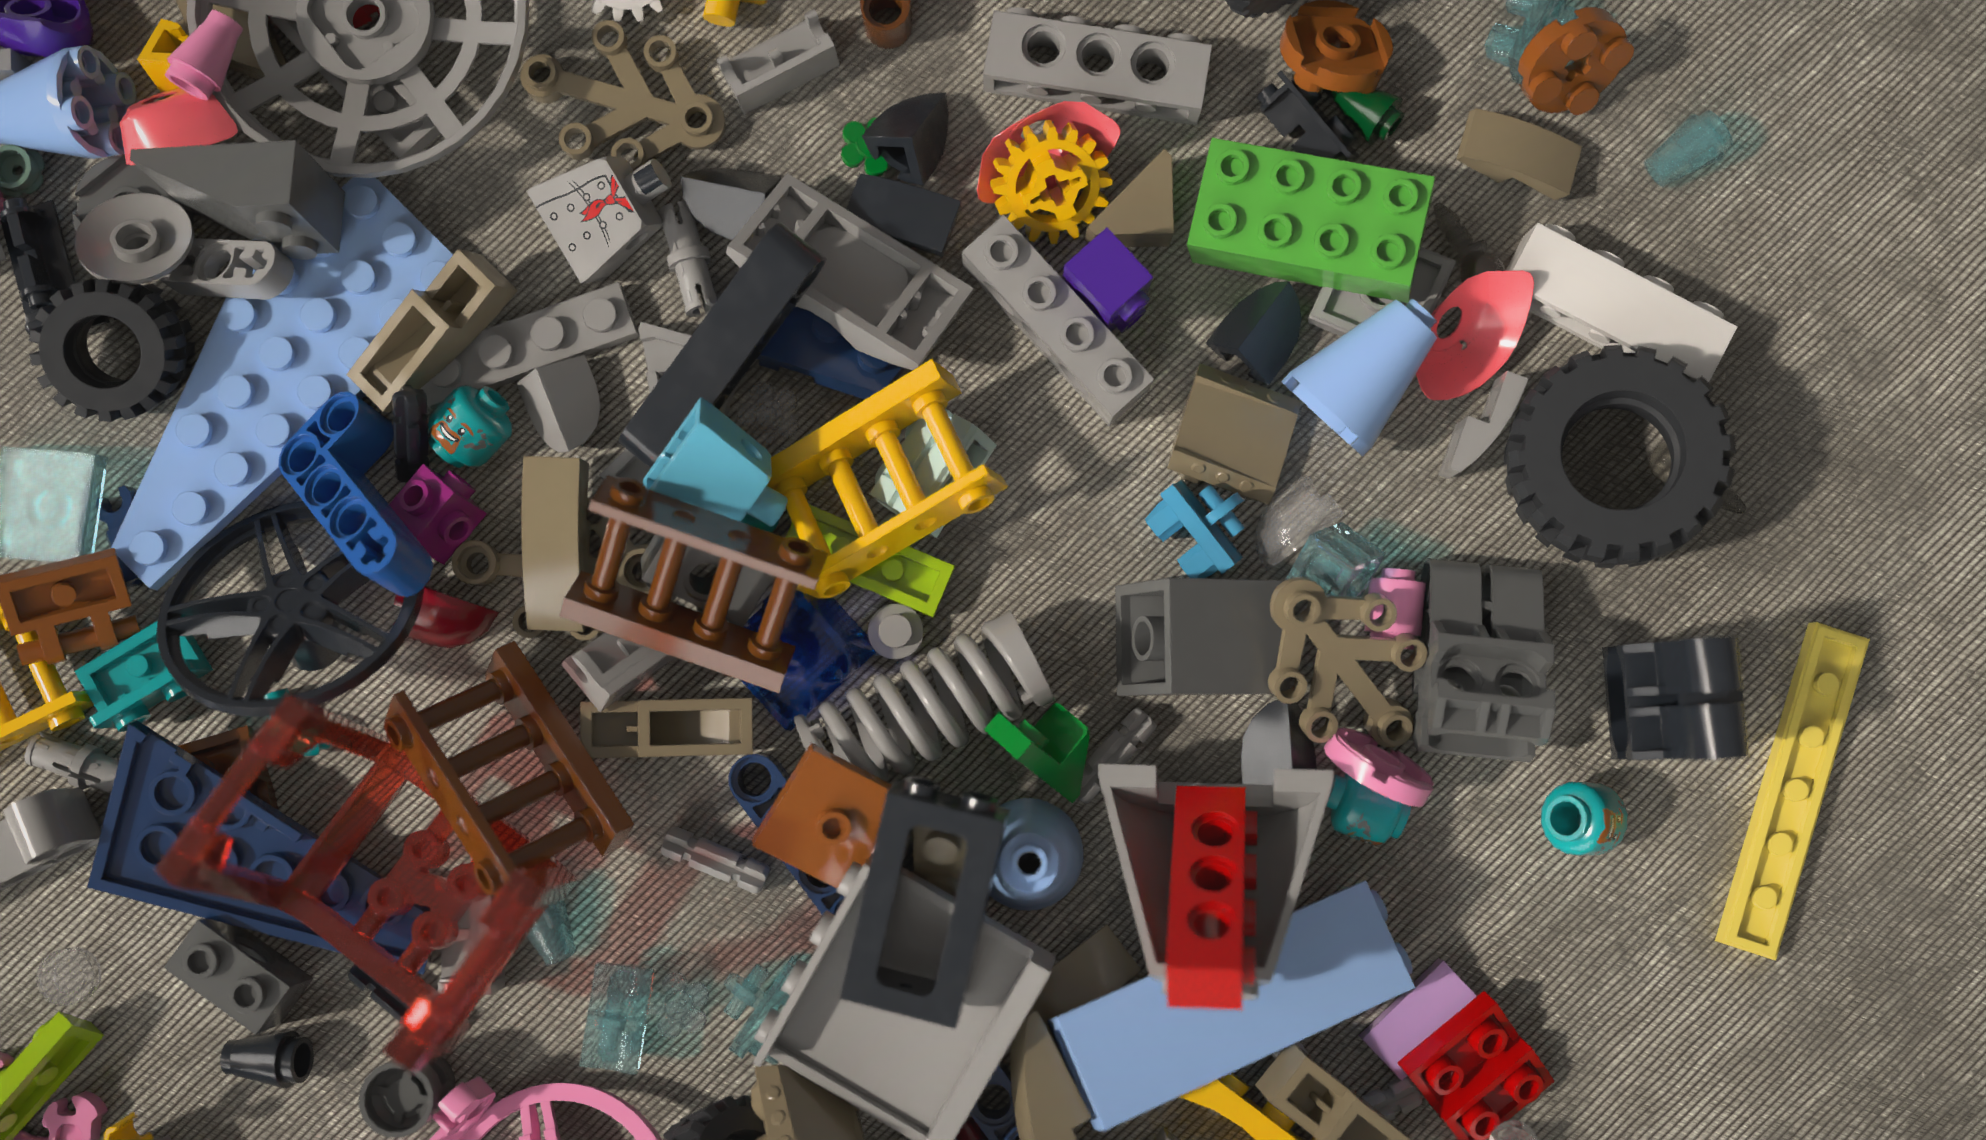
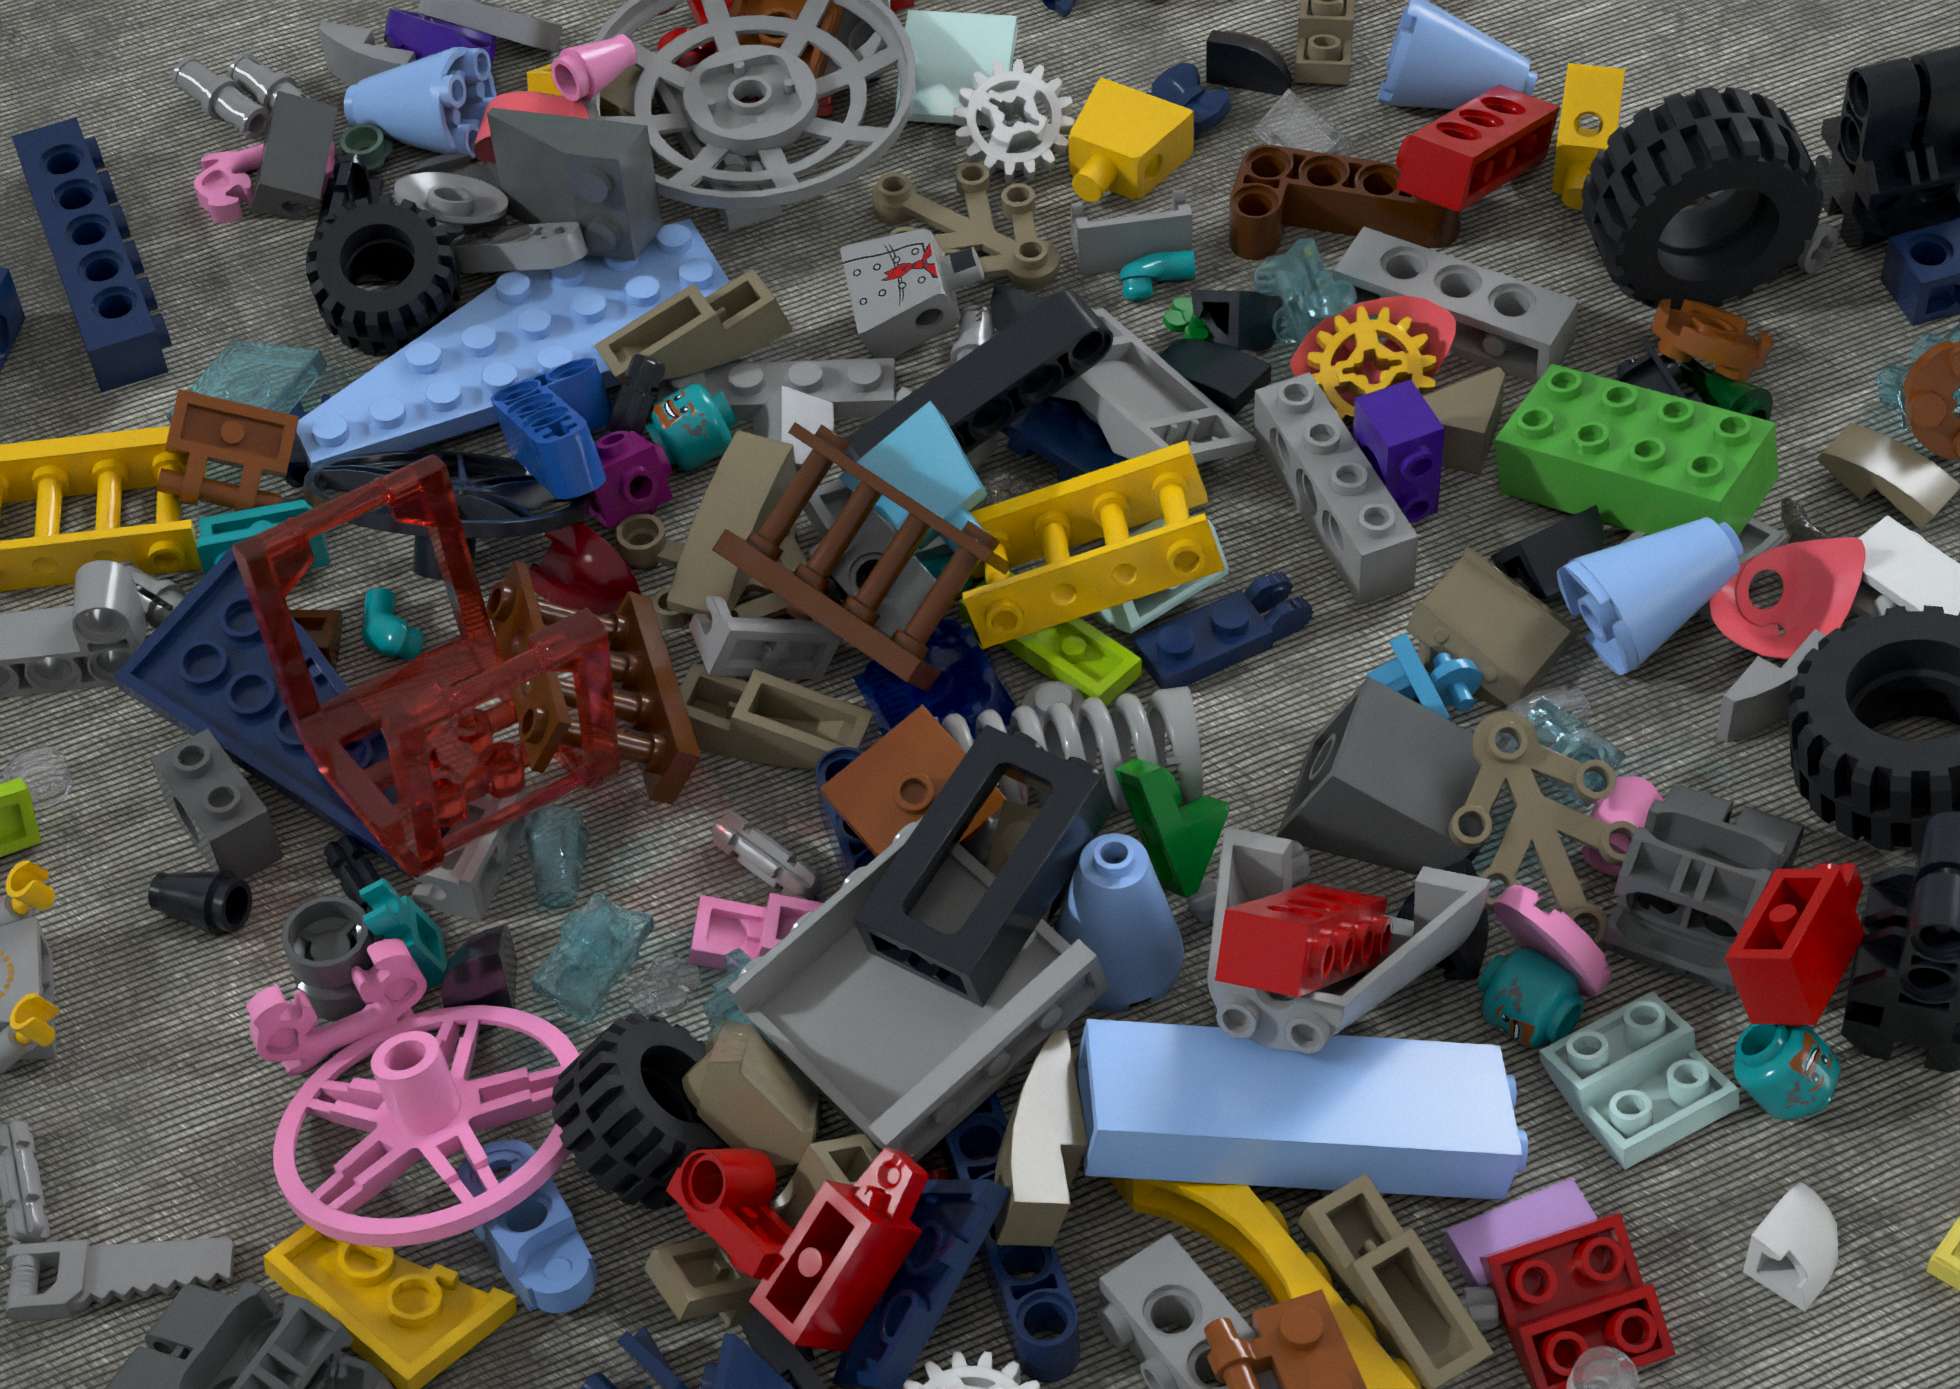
camera: 20 degrees right, 35 degrees down
(470, 1059) = (406, 921): none -> teal plate
(536, 1058) = (482, 971): none -> black brick
(740, 935) = (730, 925): none -> bright pink slope
(809, 98) = (1154, 267): none -> teal arm
(967, 111) = (1305, 290): none -> clear light blue hips
(984, 534) = (1222, 632): none -> dark blue hinge
(1467, 846) = (1639, 1080): none -> light aqua slope
(1590, 742) = (1797, 943): none -> red hinge
(1621, 960) = (1795, 1247): none -> white brick

